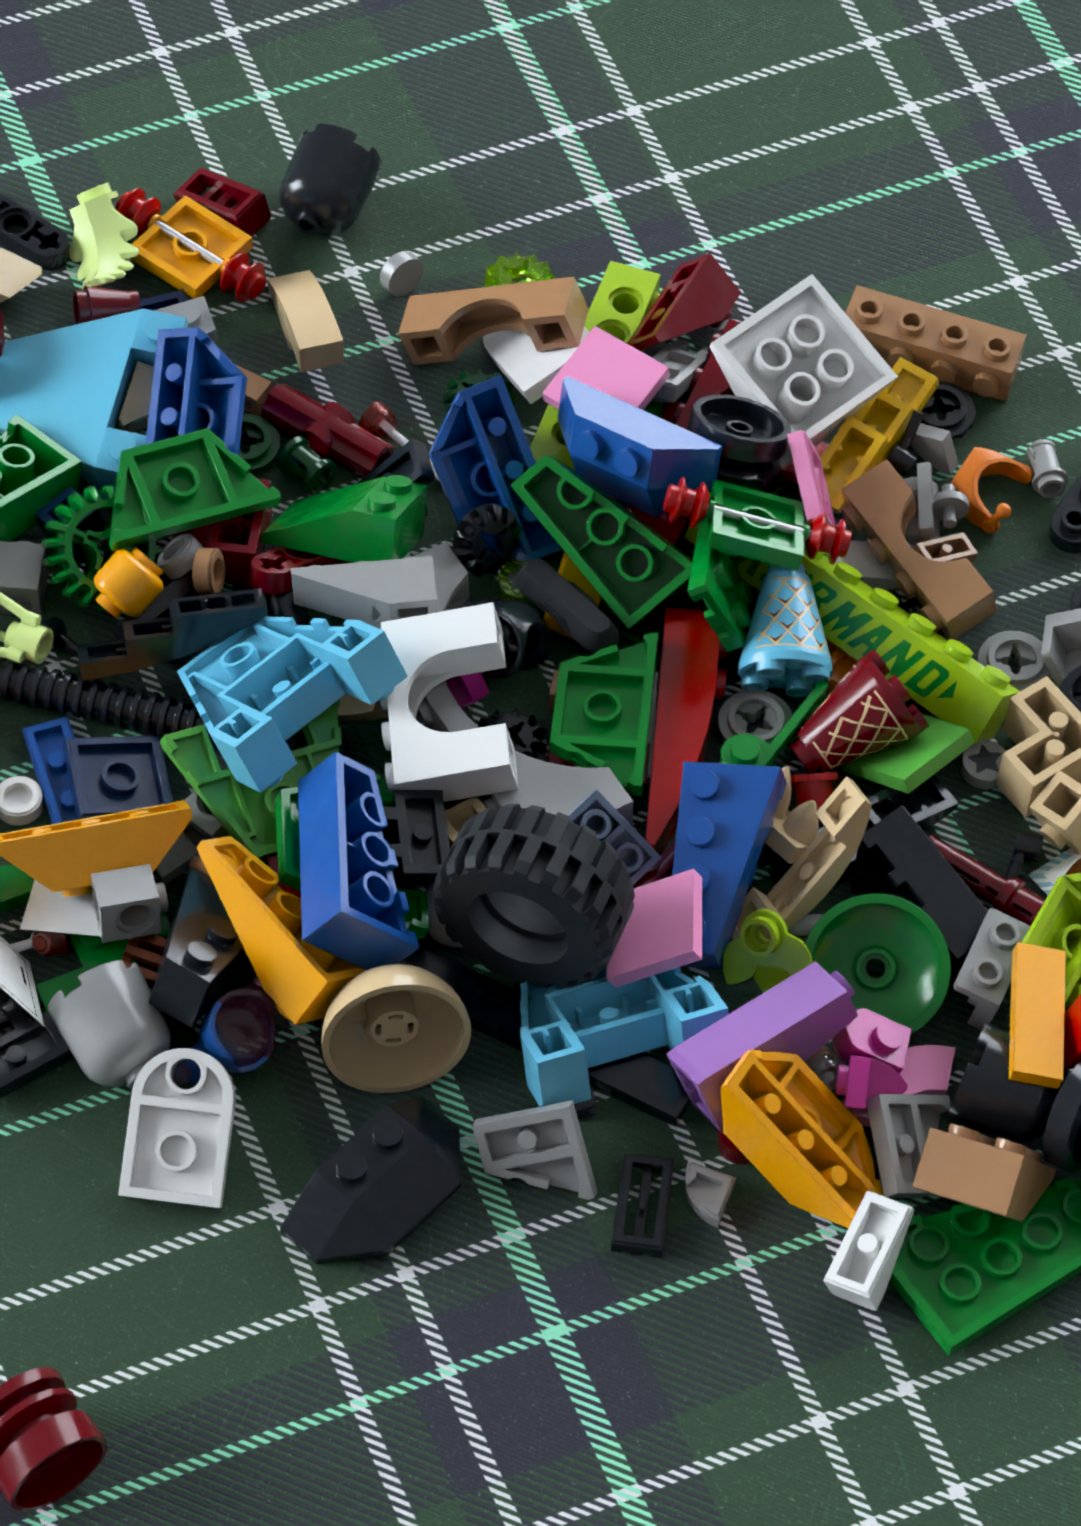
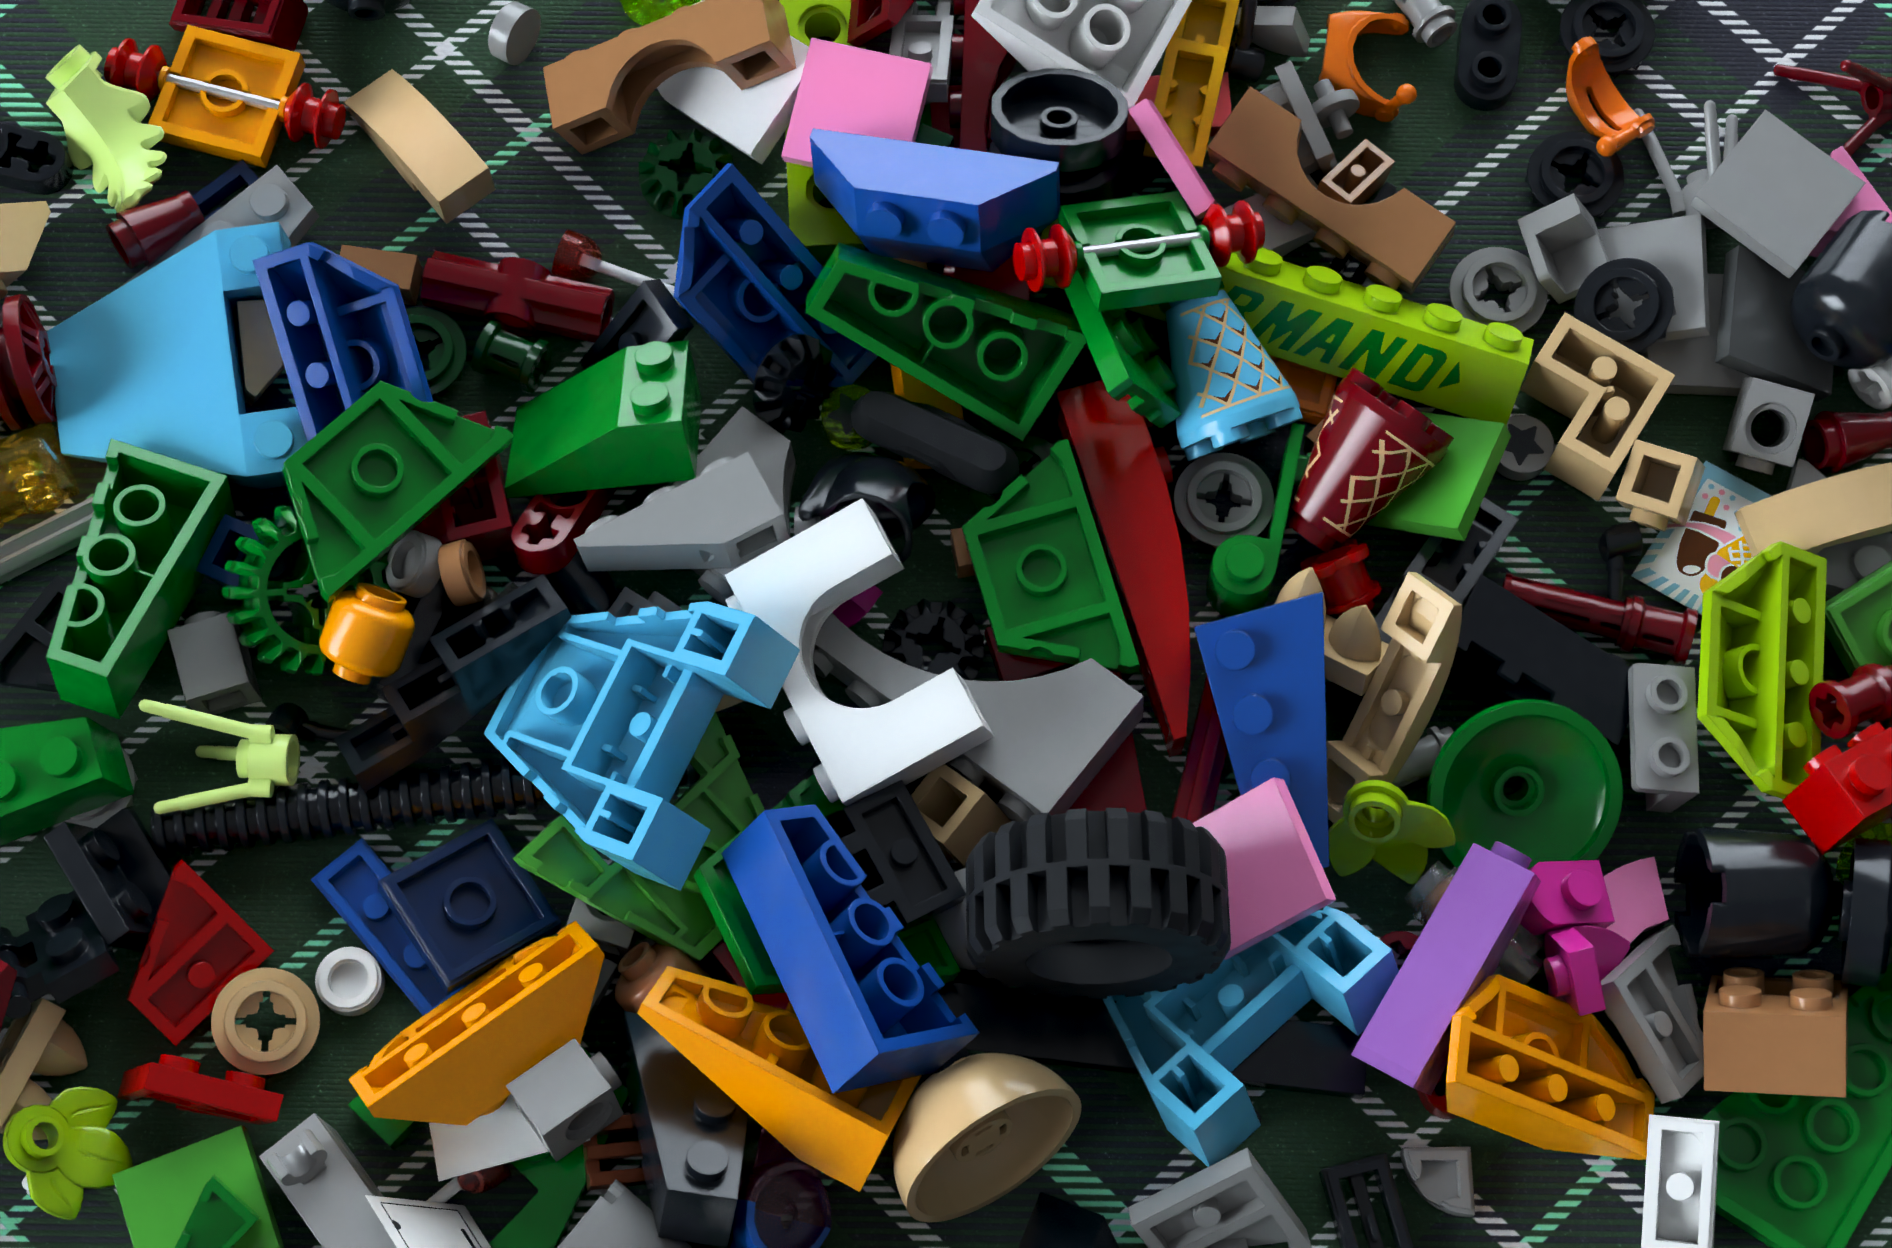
camera: 20 degrees left, 15 degrees up
(612, 827) = (1138, 759): sand blue slope -> none
(1037, 1015) = (1769, 805): light orange tile -> none

